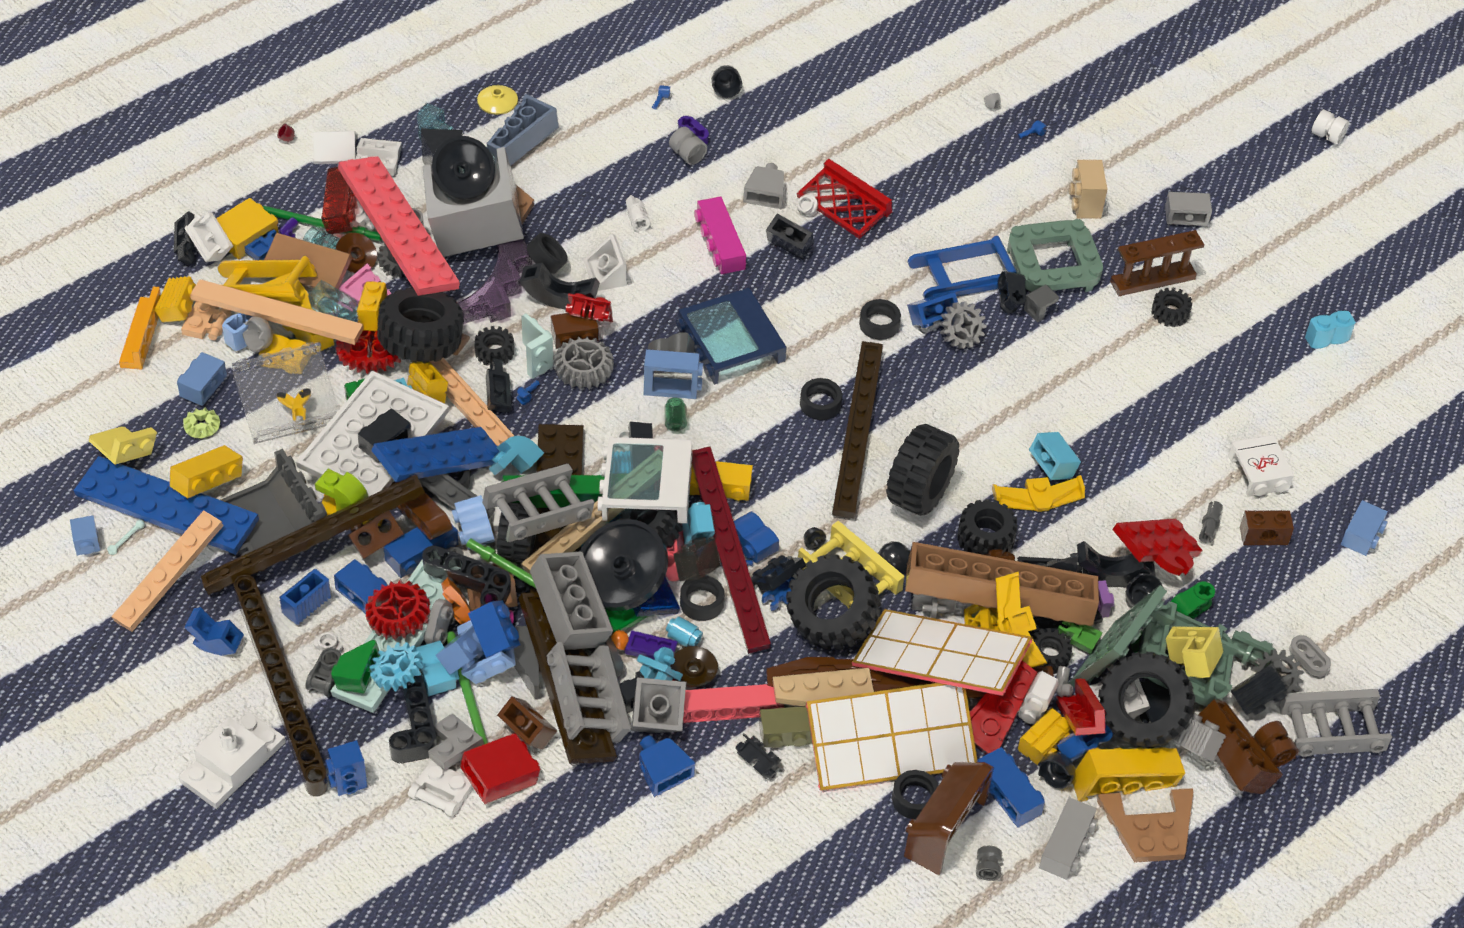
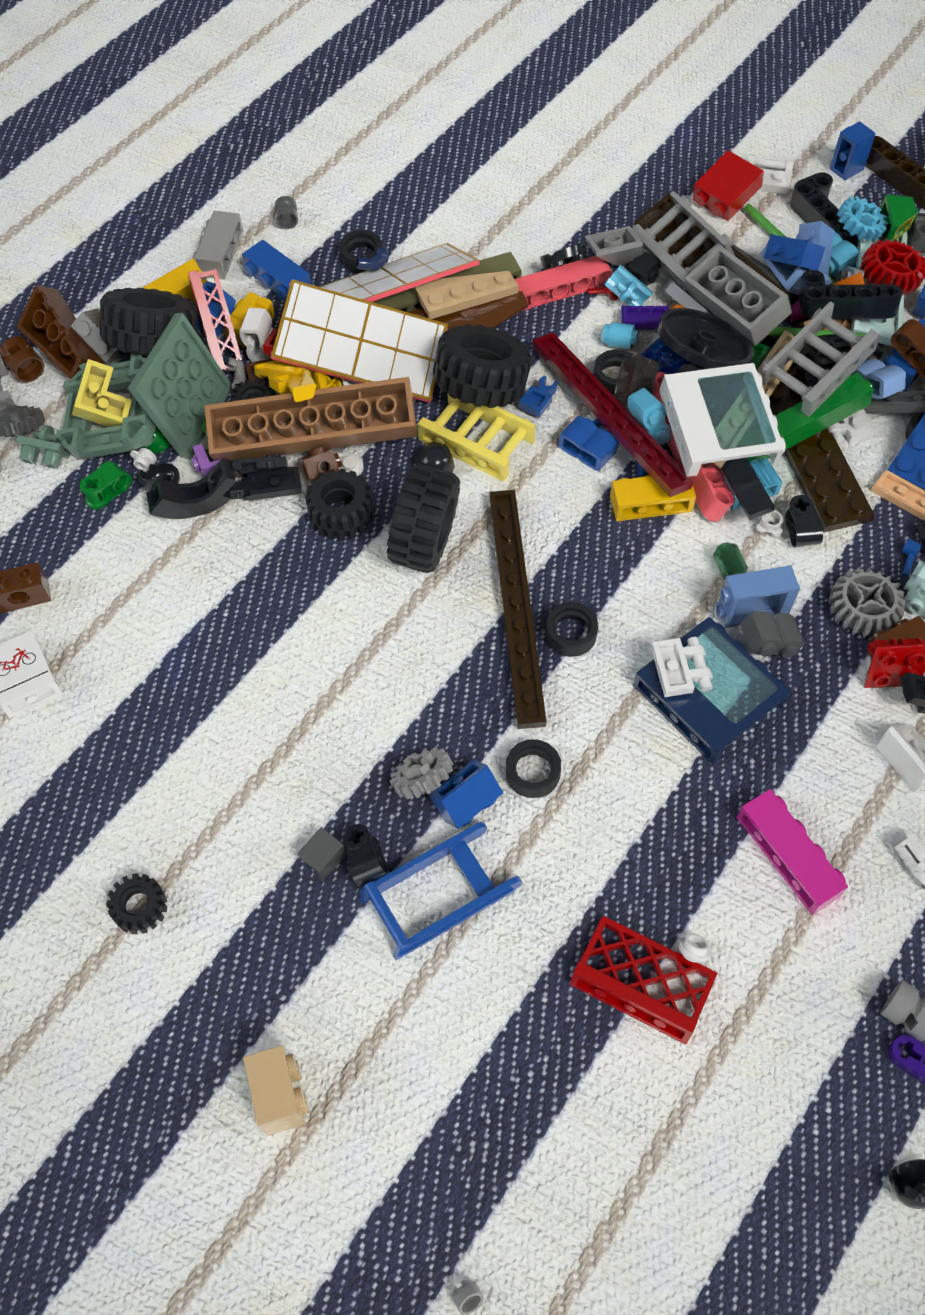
camera: 170 degrees right, 10 degrees up
(457, 739) = (774, 205): light grey plate -> none
(519, 452) = (878, 462): medium azure brick -> none
(527, 722) = (736, 219): reddish brown brick -> none
(601, 429) = (803, 522): none -> black piece
(664, 764) = (587, 219): blue torso -> none
(696, 659) = (597, 305): dark brown dish -> none
(719, 730) = (568, 254): none -> black plate
(760, 336) = (673, 667): none -> white plate
(765, 187) = (765, 965): light grey torso -> none
(766, 764) = (497, 245): black hinge -> none
(777, 572) = (544, 402): black plate -> none
(790, 236) = (696, 864): black brick -> none
(814, 538) = (524, 458): black plate -> none
(902, 764) = (375, 263): none -> dark blue arm
(945, 811) = (317, 214): reddish brown windscreen -> none
(1037, 127) = (377, 1249): blue hand -> none
(1039, 494) = (288, 576): yellow plate -> none
(1054, 455) = (274, 614): medium azure brick -> none
(1057, 770) = (235, 283): black hair -> none
(1076, 235) = (333, 989): sand green plate -> none
(1155, 834) = (138, 268): medium nougat wing -> none
(1161, 275) = (157, 952): reddish brown fence -> none
(1161, 542) = (142, 523): red plate -> none
(1188, 208) = (113, 1108): light grey brick -> none
(1211, 522) = (84, 587): dark grey pin -> none
(1260, 689) = (34, 392): black brick -> none

